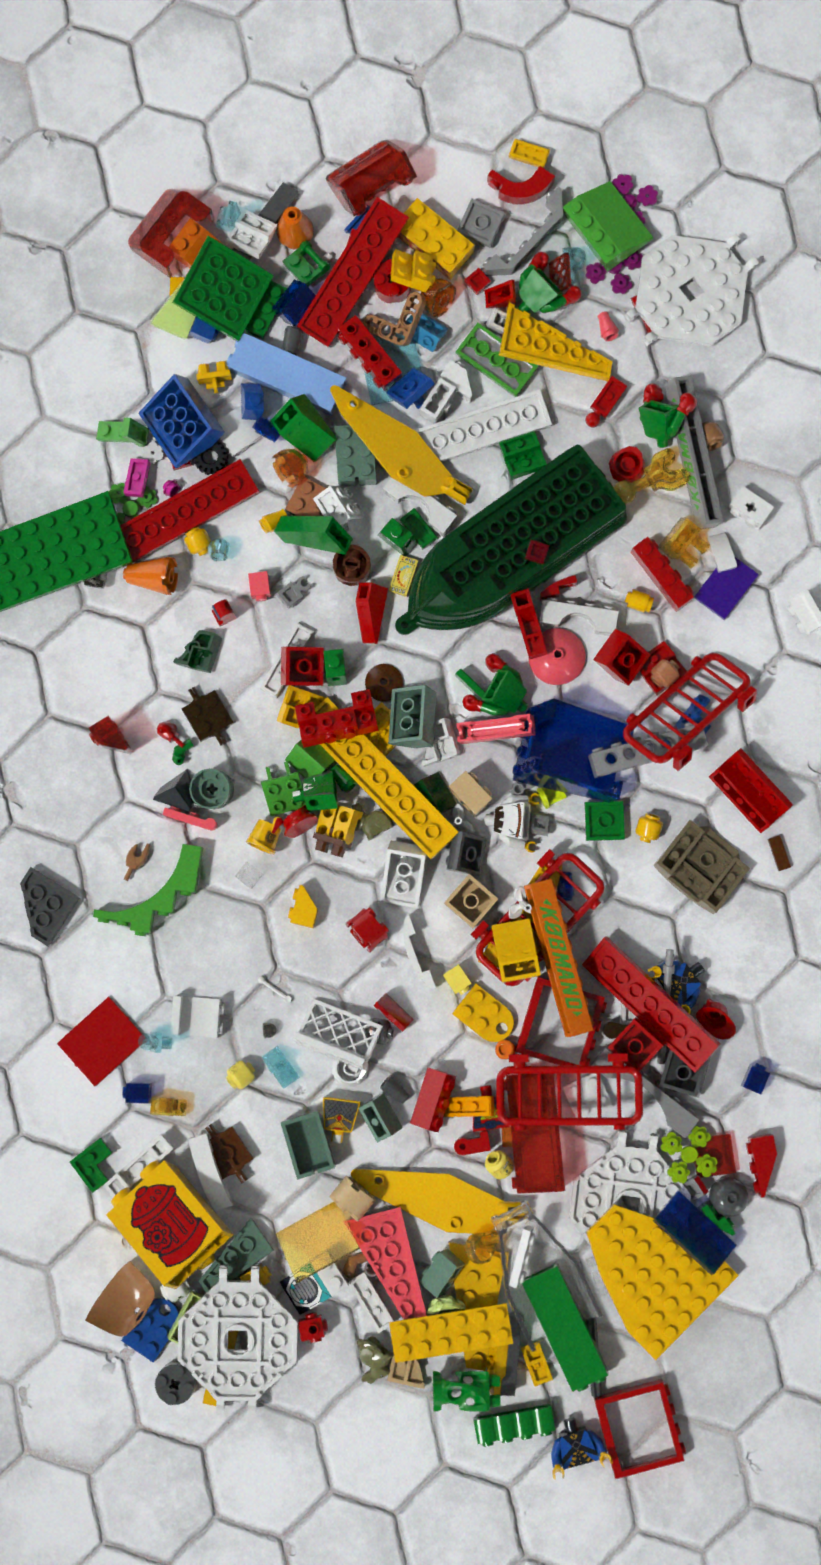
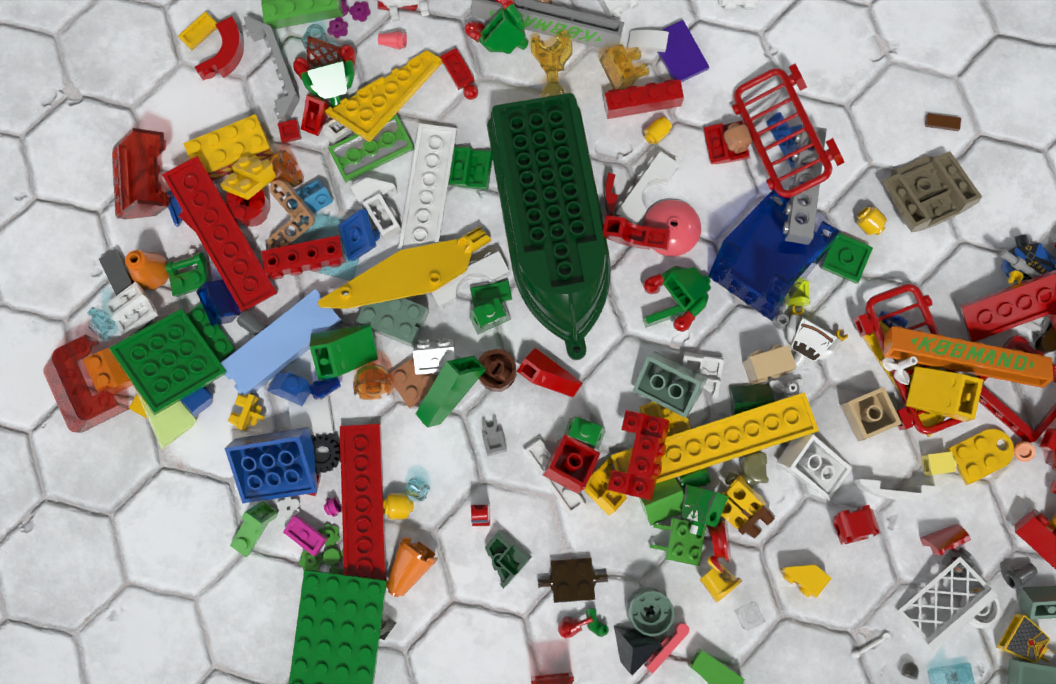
camera: 70 degrees left, 5 degrees down
(259, 585) = (471, 467): coral brick -> none
(270, 521) = (415, 427): yellow cone -> none
(383, 692) = (612, 402): reddish brown dish -> none
(403, 576) = (528, 328): light yellow tile -> none
(466, 854) = (824, 397): dark grey brick -> none
(481, 223) = (237, 101): light grey plate -> none
(495, 729) = (718, 312): coral piece -> none
(537, 552) = (576, 189): dark red tile -> none
(539, 824) = (824, 317): light grey tile -> none
(621, 657) = (704, 167): red brick -> none
(627, 464) = (526, 82): red hat -> none
(750, 790) = (878, 116): red brick -> none

